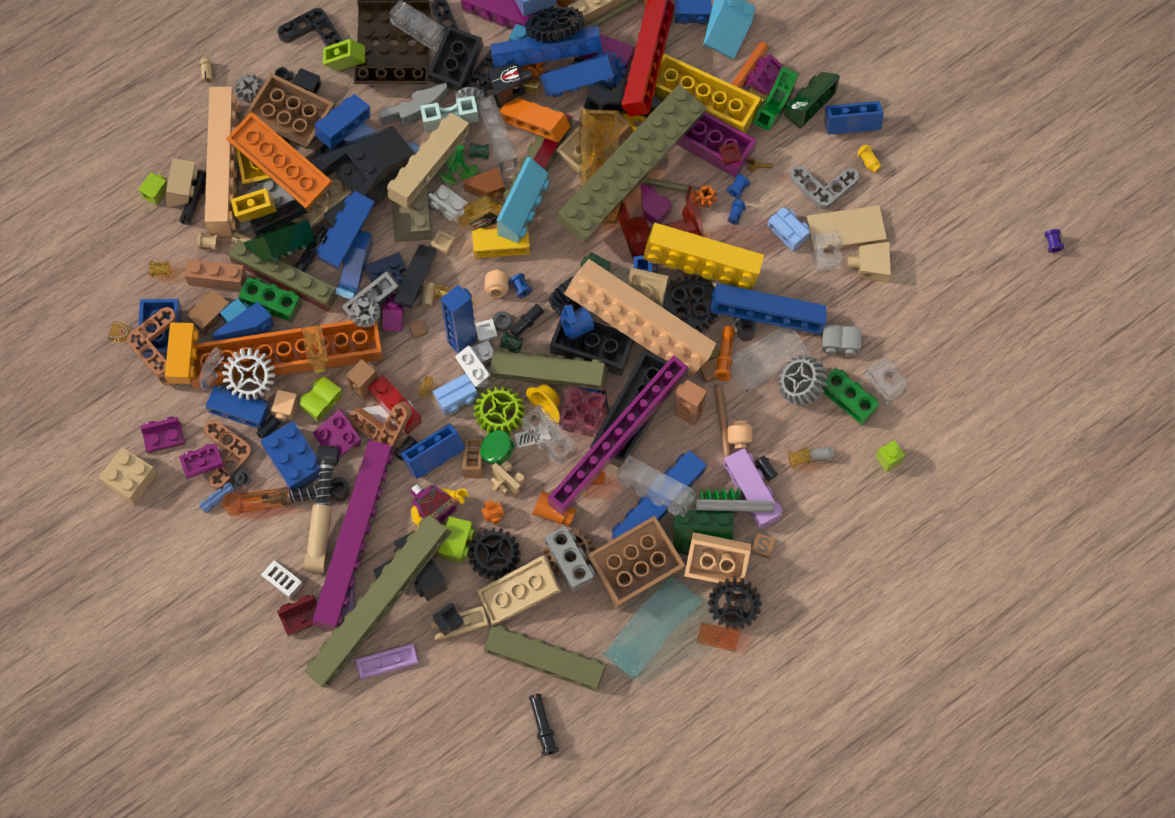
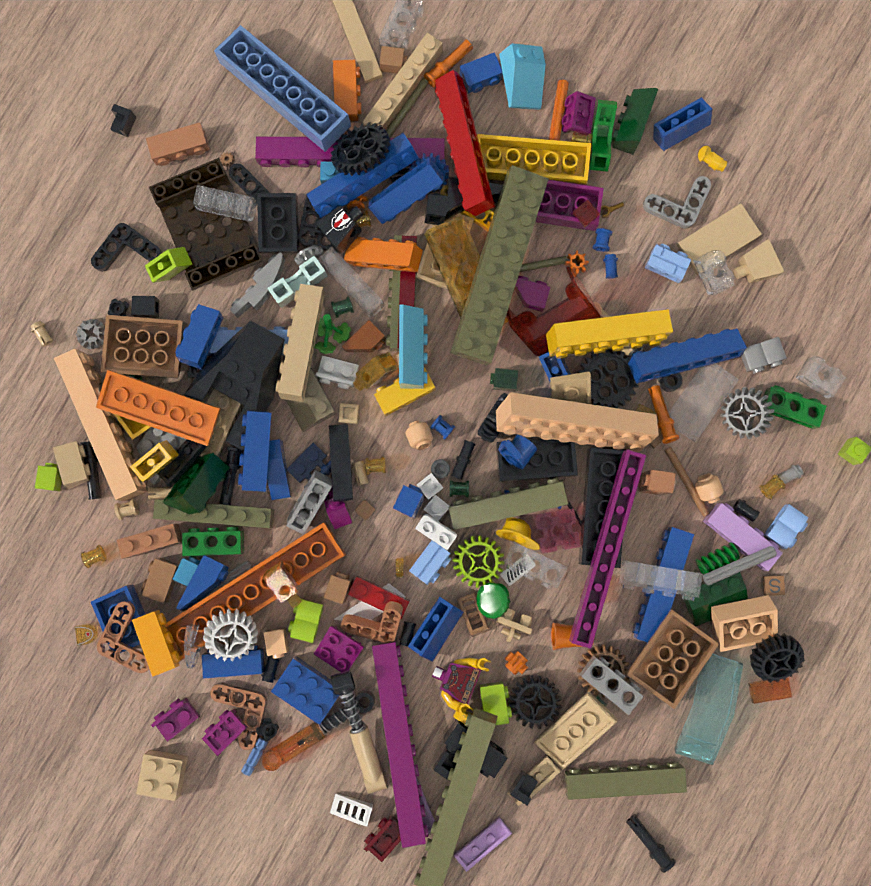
camera: 20 degrees left, 15 degrees up
(346, 292) = (282, 505): dark azure tile -> none
(365, 320) = (320, 520): light grey gear -> none
(797, 496) = (786, 527): none -> light blue brick

